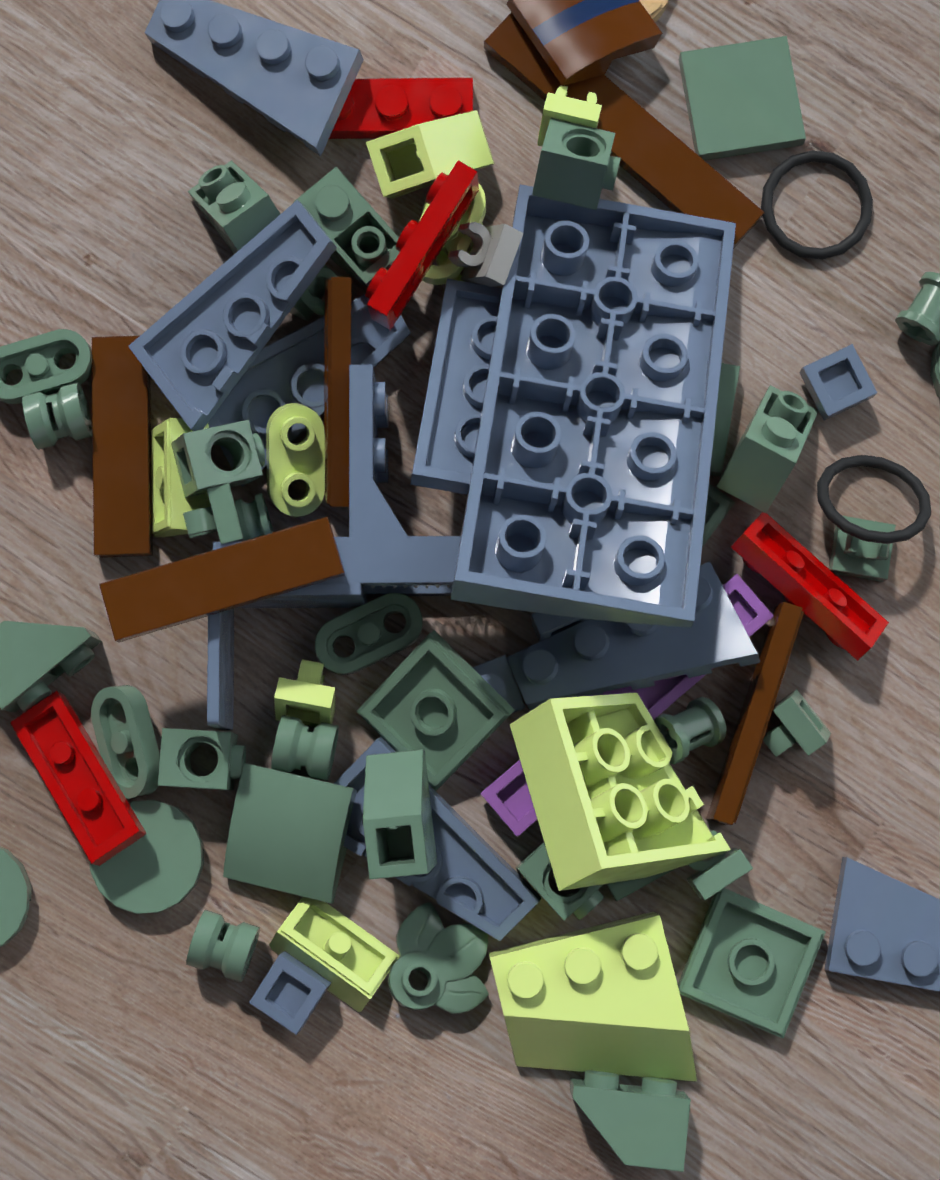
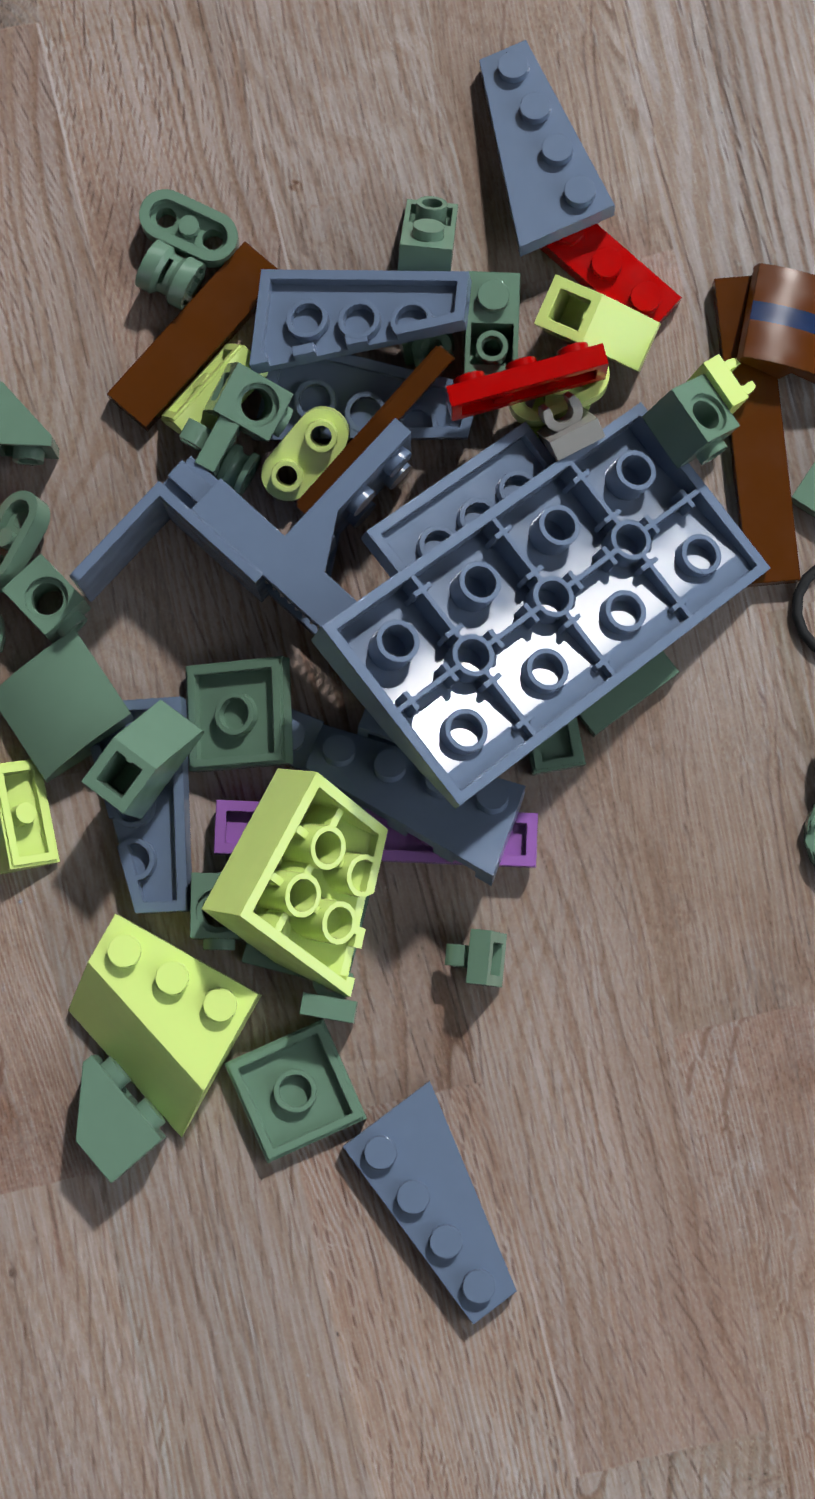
camera: 40 degrees right, 0 degrees up
(222, 579) = (170, 485): reddish brown tile -> none
(300, 747) = (123, 652): sand green wheel -> none
(306, 696) = (159, 625): yellowish green tile -> none
(369, 634) = (245, 619): sand green plate -> none
(444, 956) = (88, 892): sand green plate -> none
(690, 728) = (403, 890): sand green bush -> none
(755, 714) = (459, 922): reddish brown tile -> none
(768, 448) = (643, 746): sand green slope -> none
(810, 585) = (582, 869): red plate -> none
(838, 382) = (738, 746): sand blue plate -> none
(861, 558) = (646, 879): sand green tile -> none
(862, 533) = (656, 874): black piece -> none

